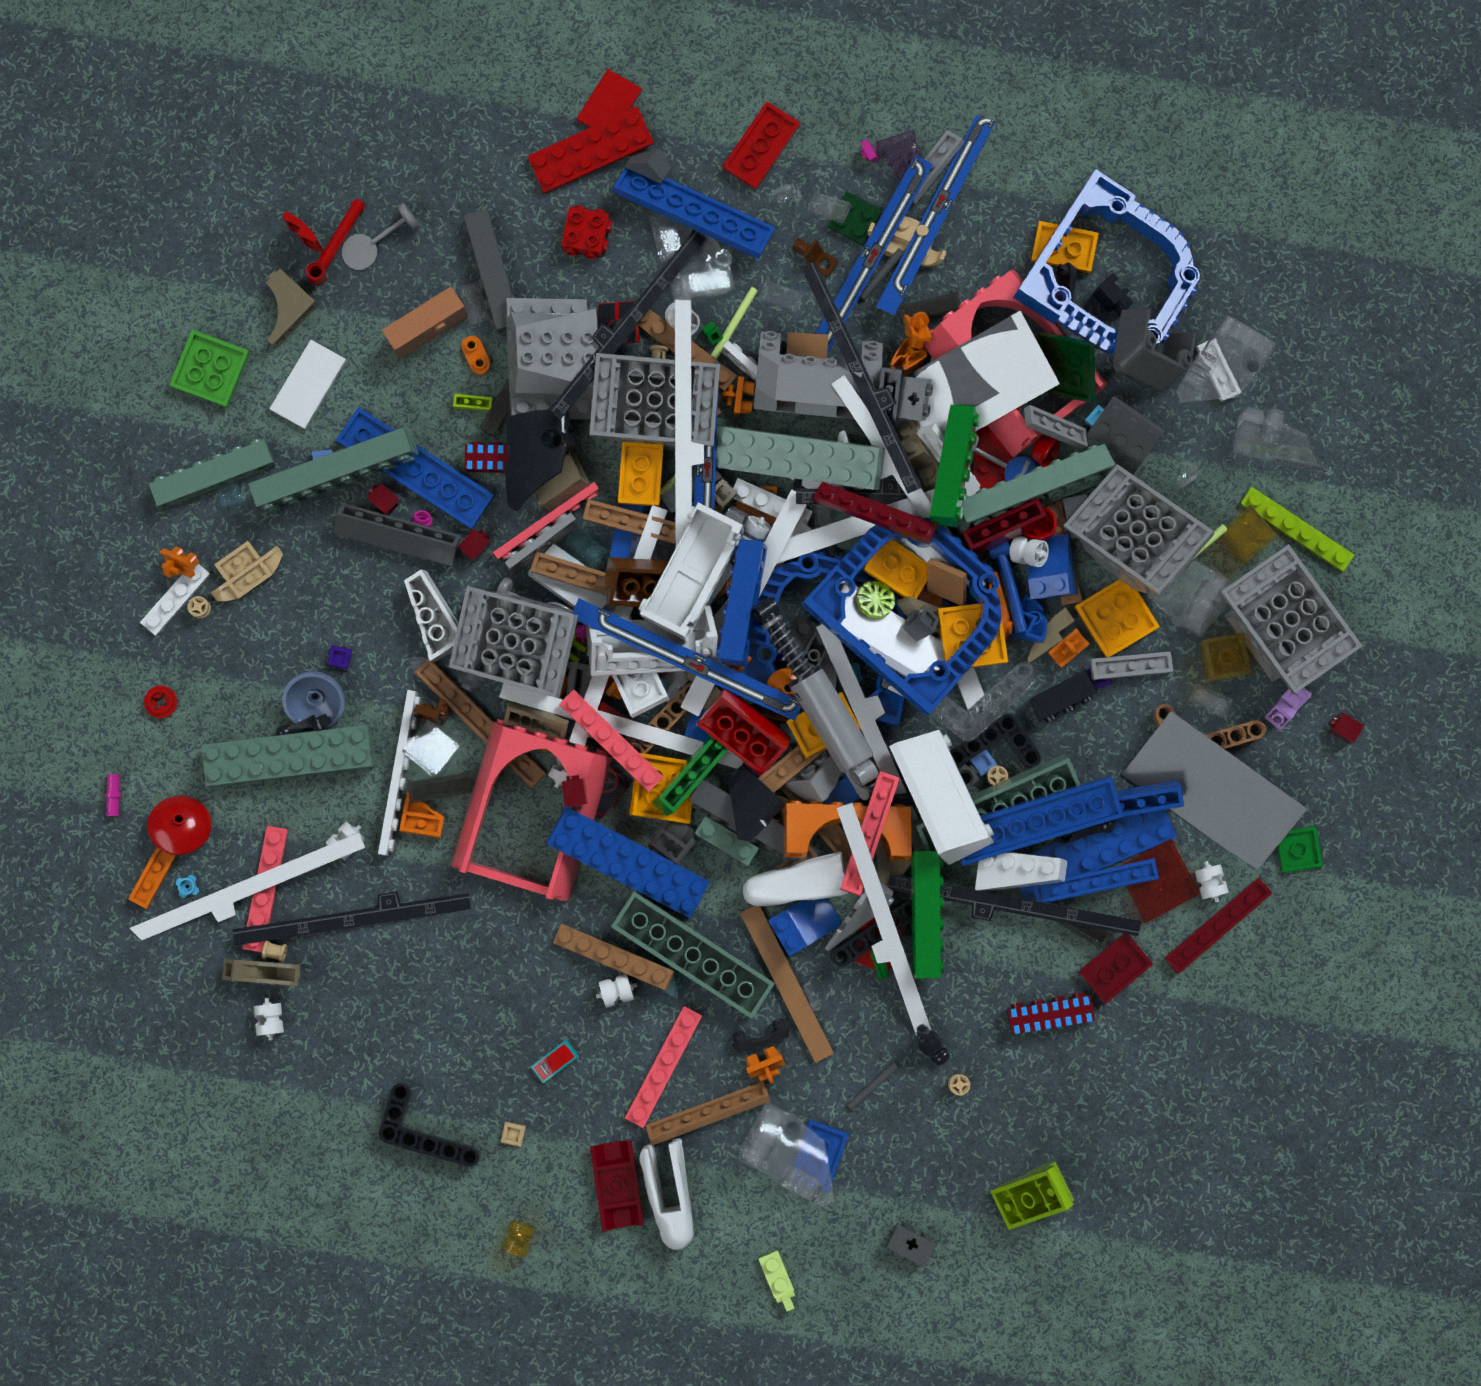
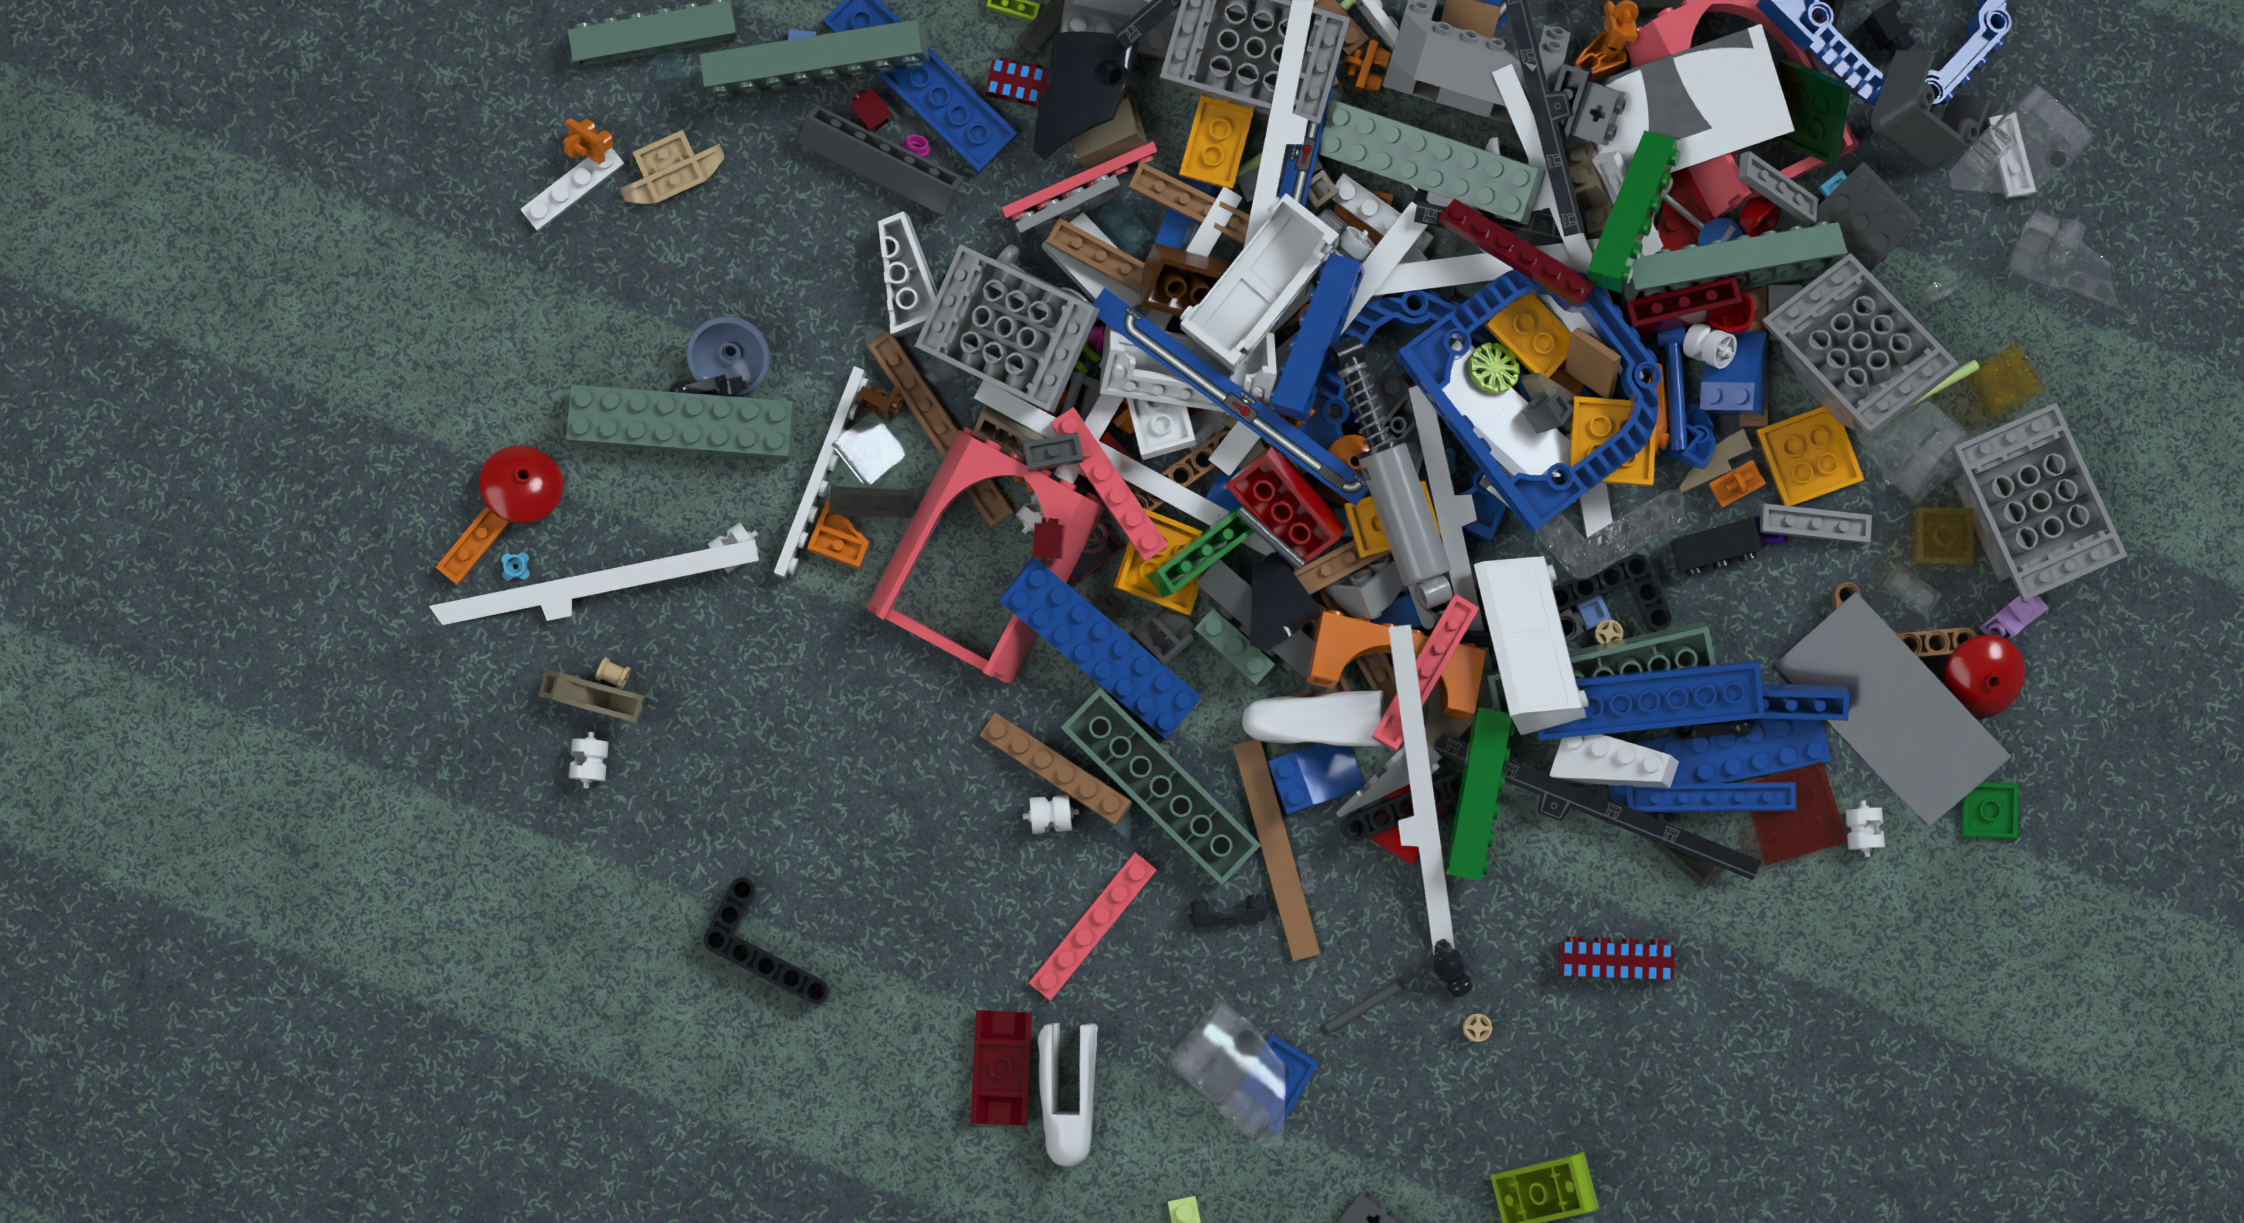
camera: 15 degrees right, 0 degrees up
(113, 794) = (441, 427): dark pink pin -> none
(158, 692) = (514, 320): red gear -> none
(196, 604) = (599, 199): tan wheel -> none
(263, 901) = (611, 604): coral plate -> none
(339, 657) = (772, 307): dark purple tile -> none
(388, 909) = (772, 649): black sticker -> none
(474, 545) = (979, 193): dark red brick -> none
(513, 1134) = (878, 974): tan tile -> none
(521, 1231) = (864, 1101): clear yellow wheel -> none
(554, 1061) = (951, 890): slope -> none
(565, 726) = (1052, 452): none -> dark grey plate
(707, 1113) = (1139, 998): medium nougat plate -> none
(737, 756) = (1270, 538): none -> dark grey bar
(766, 1068) = (1226, 955): orange hips -> none
(881, 968) = (1404, 853): green piece -> none
(1115, 967) = (1714, 916): dark red plate -> none
(1218, 925) = (1862, 888): dark red plate -> none
(1267, 746) = (1975, 664): none -> red dish
(1298, 530) = (2074, 388): lime plate -> none
(1345, 728) = (2084, 662): dark red brick -> none

